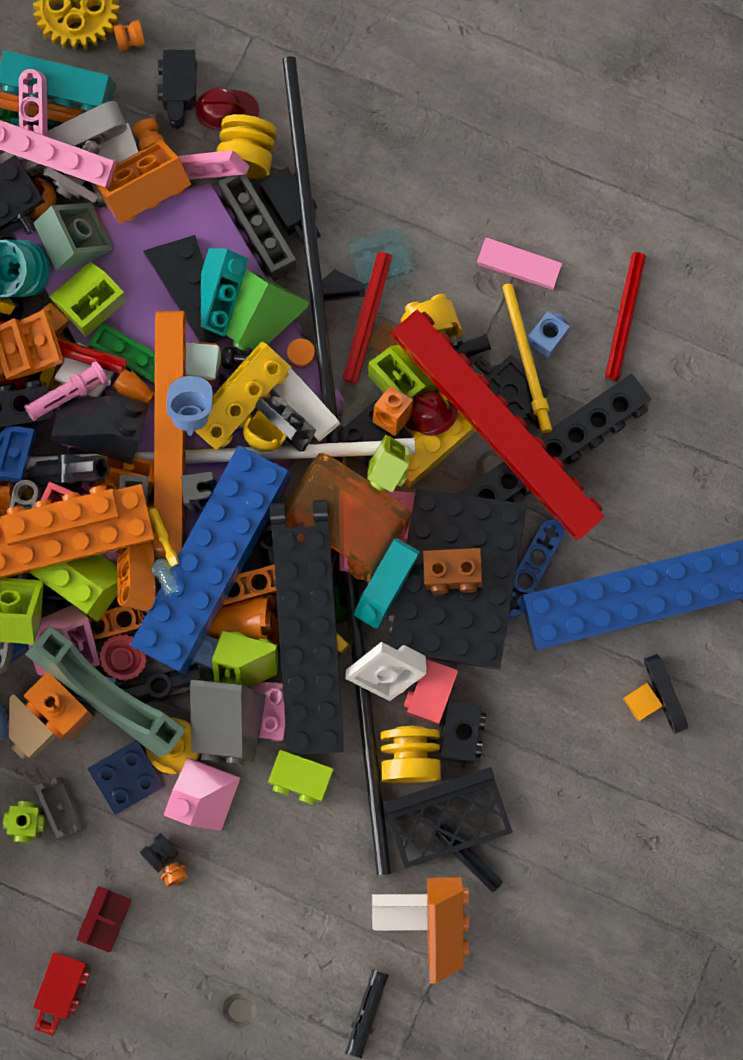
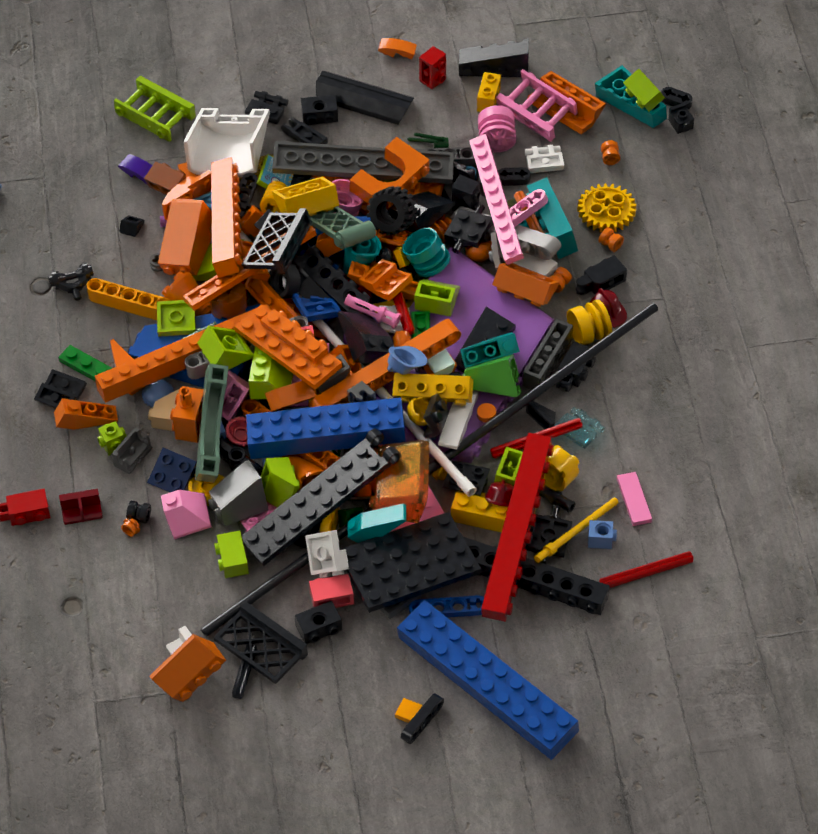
camera: 60 degrees right, 25 degrees down
(70, 470) = (328, 333): black piece -> none
(72, 235) = (468, 269): sand green slope -> none
(163, 537) = (321, 393): yellow piece -> none
(165, 574) = (299, 402): clear light blue arm -> none
(213, 165) = (562, 309): bright pink tile -> none
(363, 1025) = (102, 670): black pin -> none
(389, 465) = (447, 475): lime brick -> none
(392, 411) = (485, 471): orange brick -> none
(410, 755) = (283, 599): yellow wheel -> none
(453, 570) = (409, 547): dark orange brick -> none

